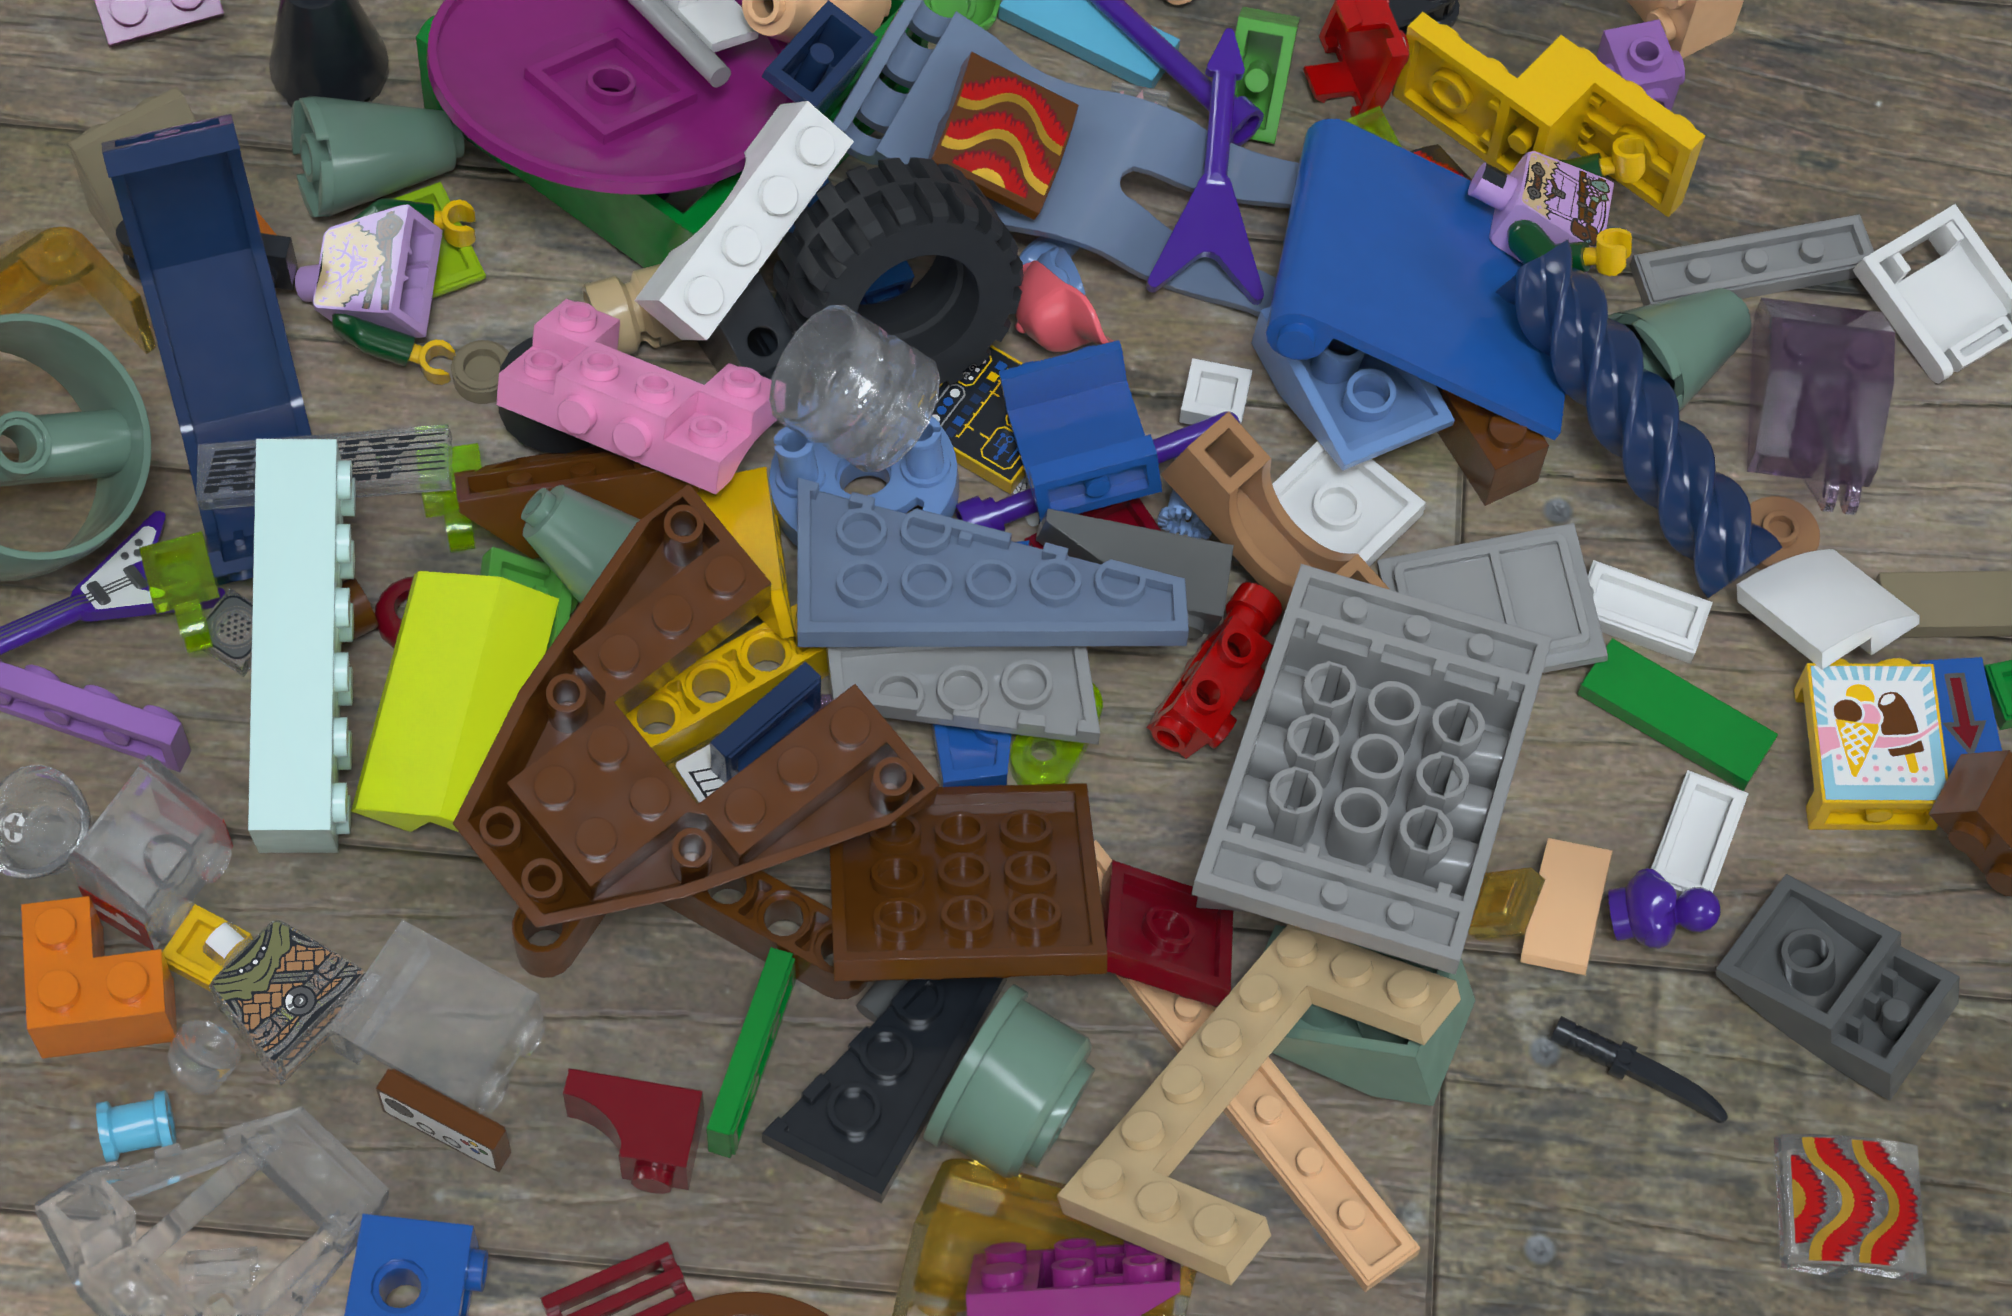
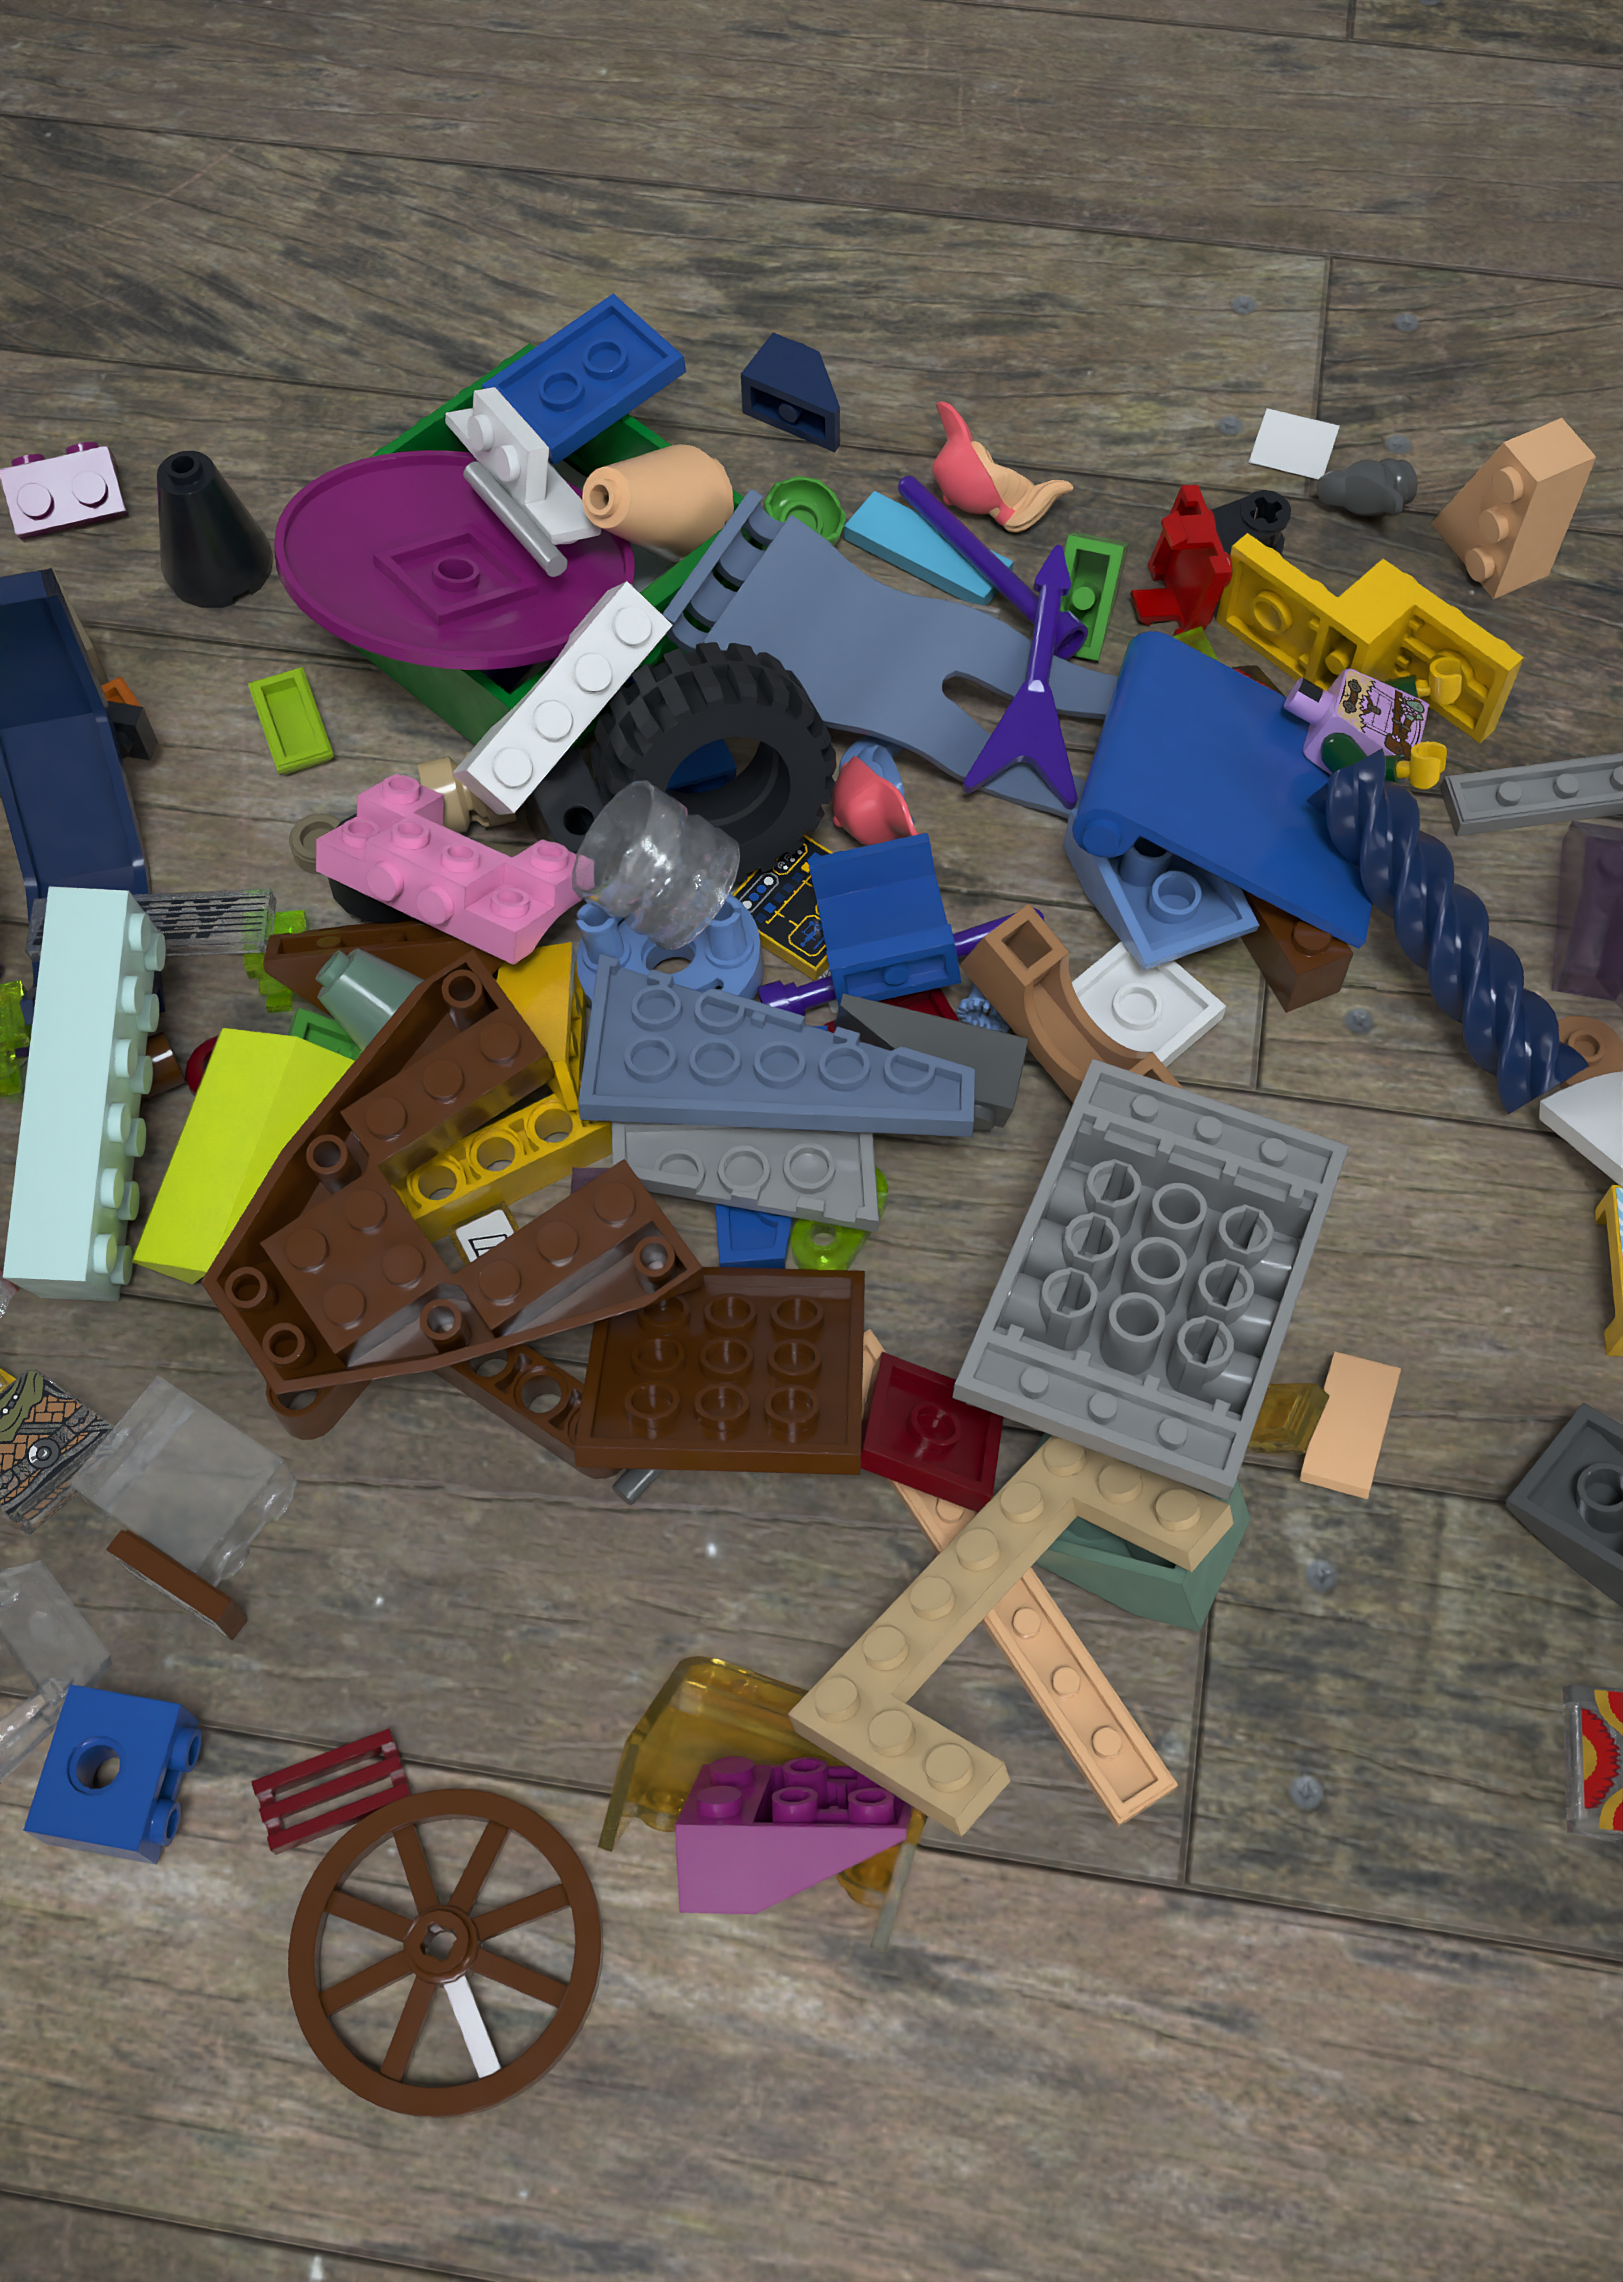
camera: 10 degrees right, 0 degrees up
(367, 150) = (234, 634): sand green cone -> none
(381, 277) = (229, 748): torso -> none
(647, 1121) = (386, 1604): dark red arch -> none
(751, 1053) = (496, 1533): green tile -> none
(766, 722) = (544, 1189): dark blue tile -> none
(821, 58) = (651, 549): dark blue slope -> none
(882, 1091) = (626, 1582): black wing -> none
(1004, 134) = (830, 632): slope -> none
(1013, 1088) = (755, 1588): sand green wheel -> none
(1213, 390) = (1022, 884): white plate -> none
(1219, 675) = (1005, 1168): red brick -> none
(1515, 579) = (1316, 1086): light grey piece -> none
(1624, 1060) = (1405, 1591): black piece -> none
(1644, 57) = (1465, 585): medium lavender brick -> none
(1648, 612) = (1441, 1125): white tile -> none
(1651, 911) = (1440, 1433): dark purple animal -> none
(1678, 714) = (1474, 1230): green tile -> none
(1689, 337) = (1500, 854): sand green cone -> none
(1698, 833) = (1488, 1361): white tile -> none

